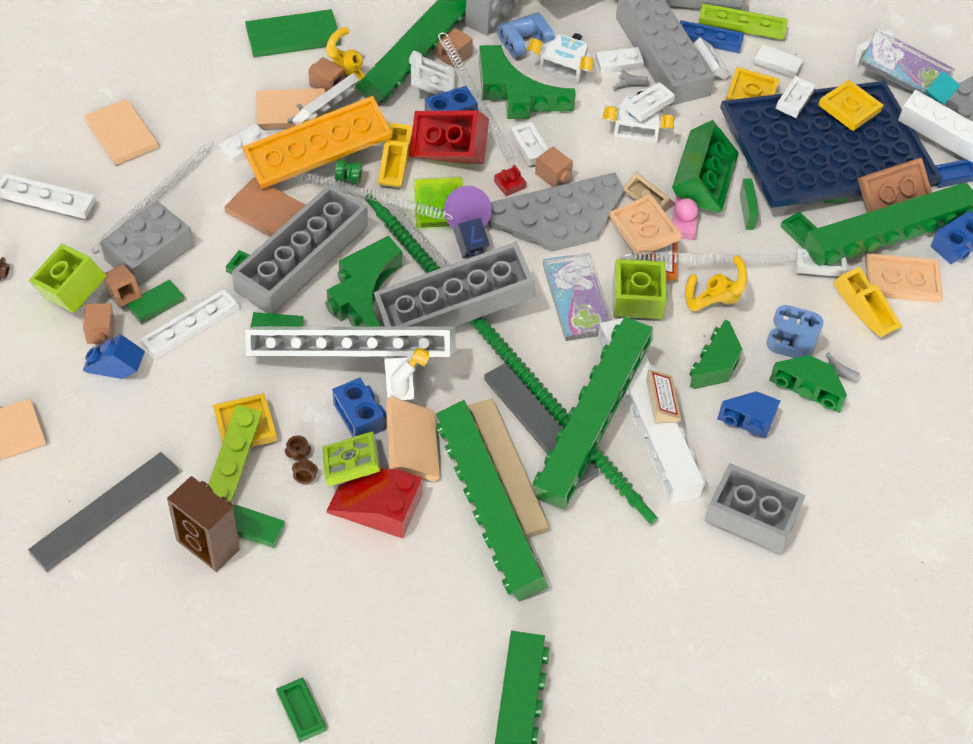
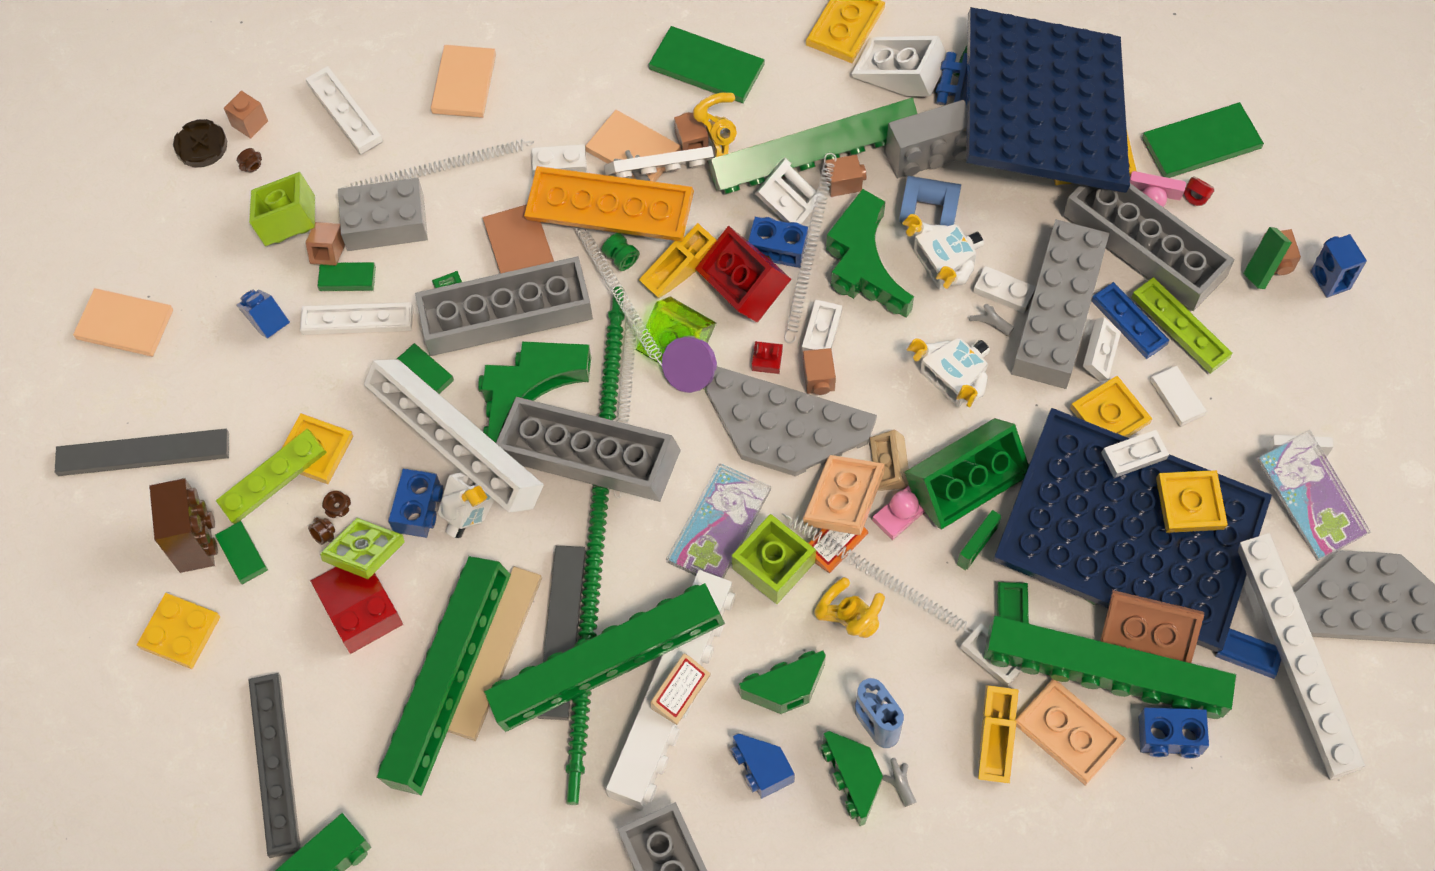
camera: 45 degrees right, 10 degrees up
(98, 323) = (279, 269): nougat brick -> none
(257, 608) = (178, 630): none -> yellow plate
(301, 709) = (133, 748): green tile -> none
(412, 439) = (430, 566): light nougat tile -> none
(421, 645) = (274, 765): none -> dark grey tile
(471, 238) = (666, 397): dark blue brick -> none
(649, 101) = (970, 361): white plate -> none
(941, 88) = (1301, 551): teal brick -> none

